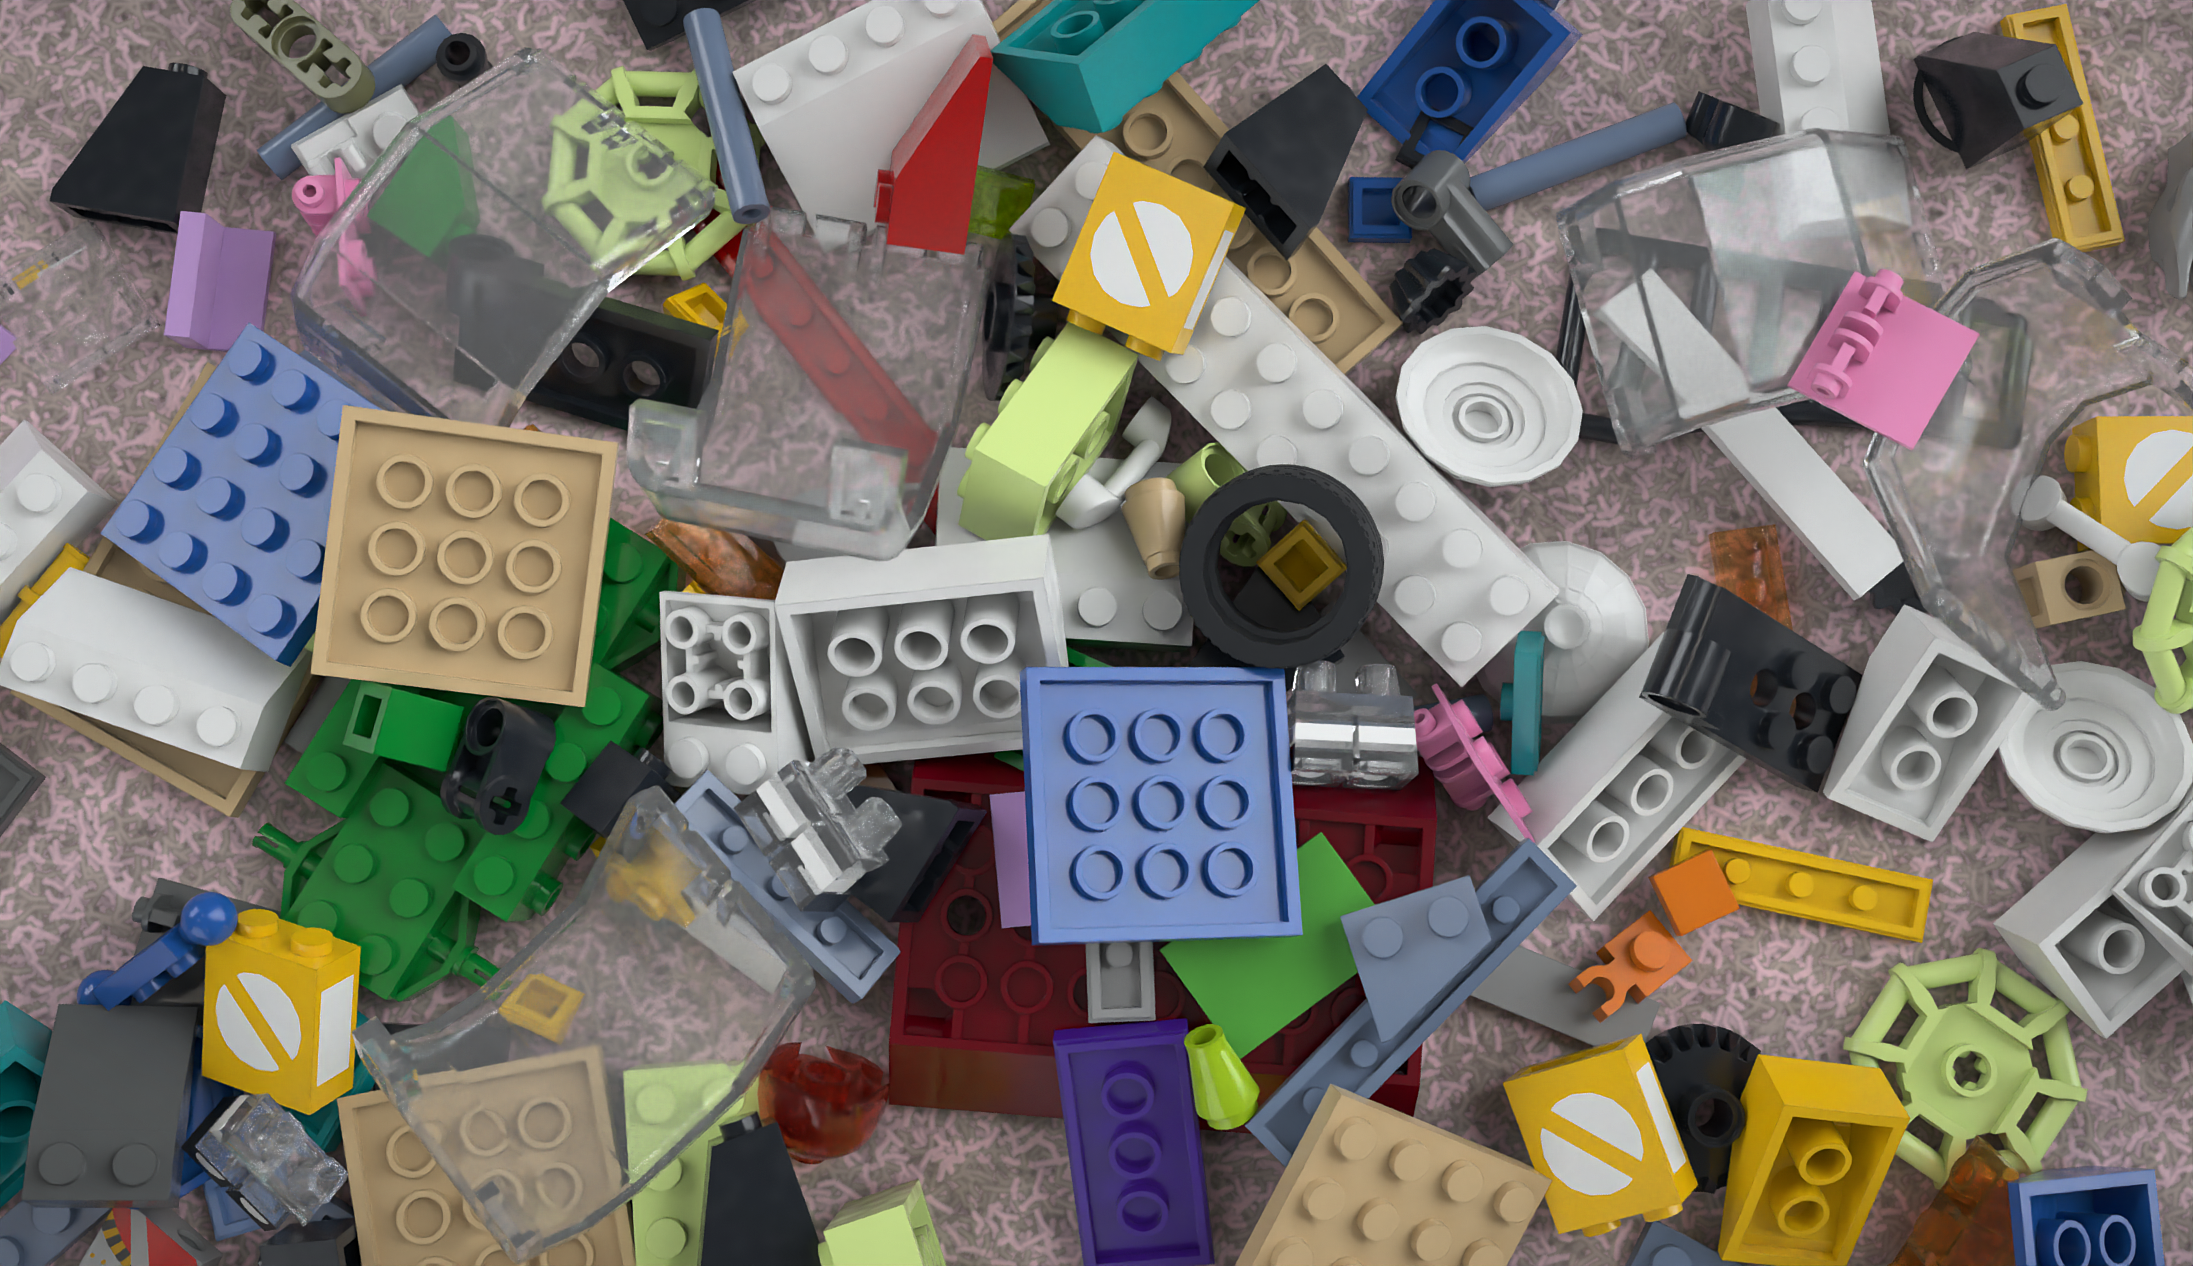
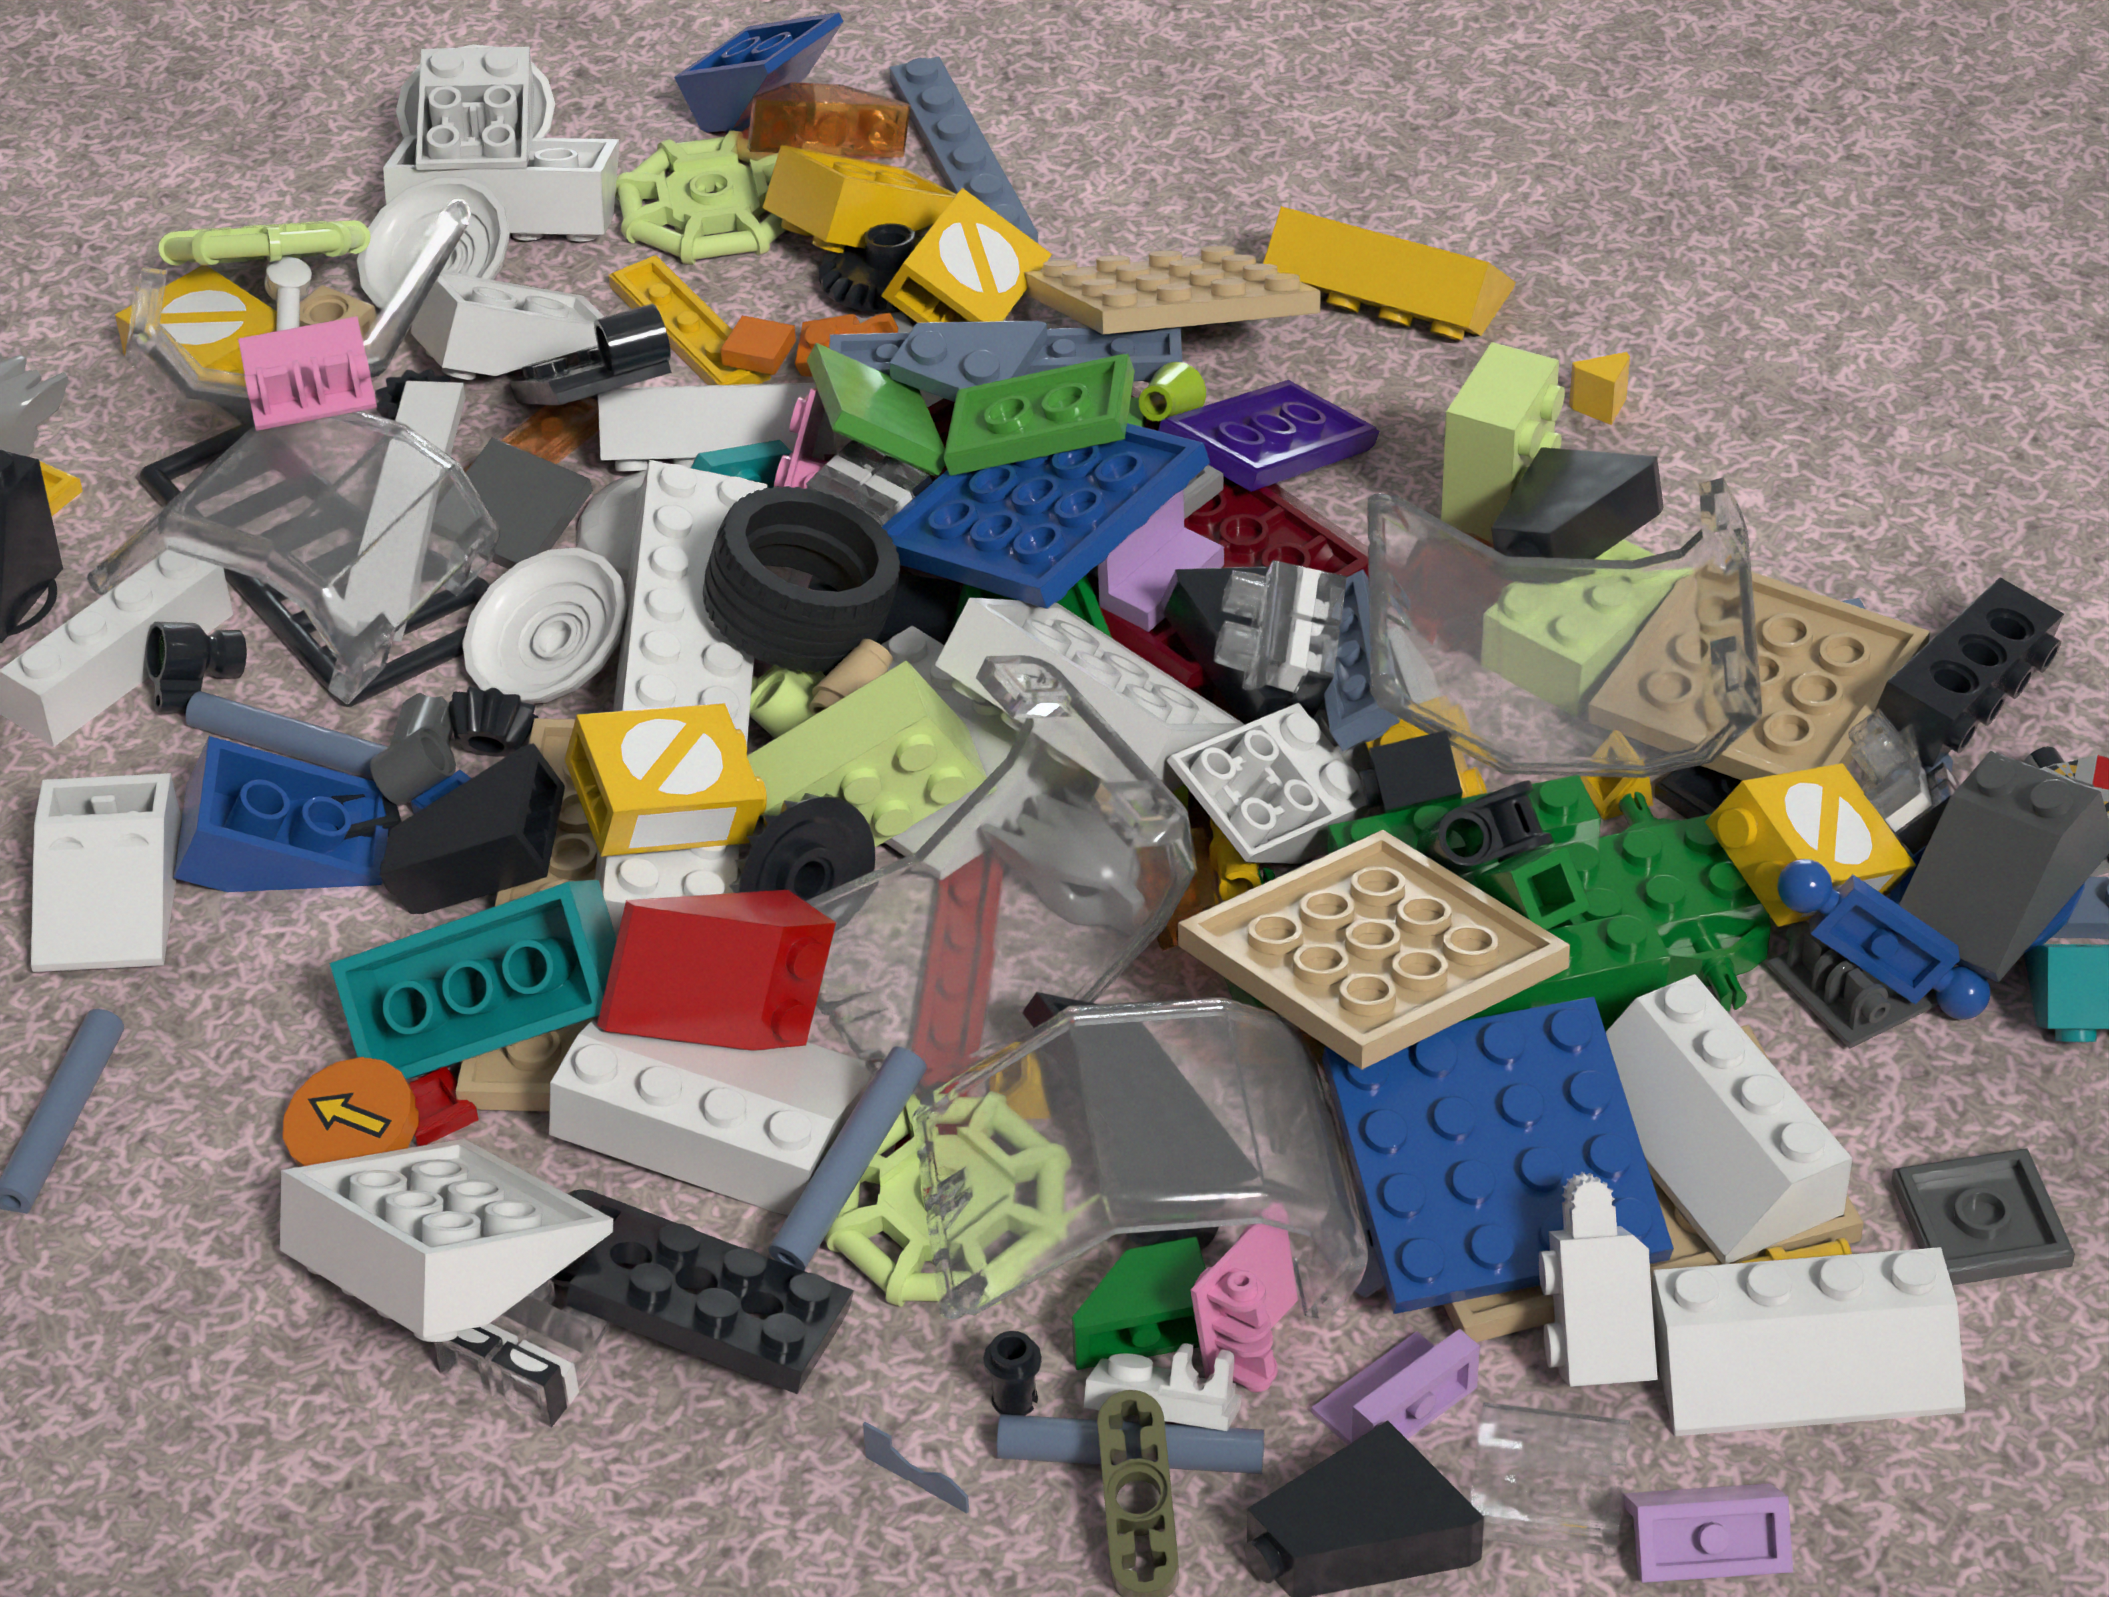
camera: 135 degrees left, 40 degrees down
(109, 436) = (1598, 1292): none -> white hinge
(1253, 902) = (1040, 414): none -> bright green tile
(1418, 803) = (876, 410): none -> bright green tile
(1681, 523) = (526, 498): none -> dark grey tile

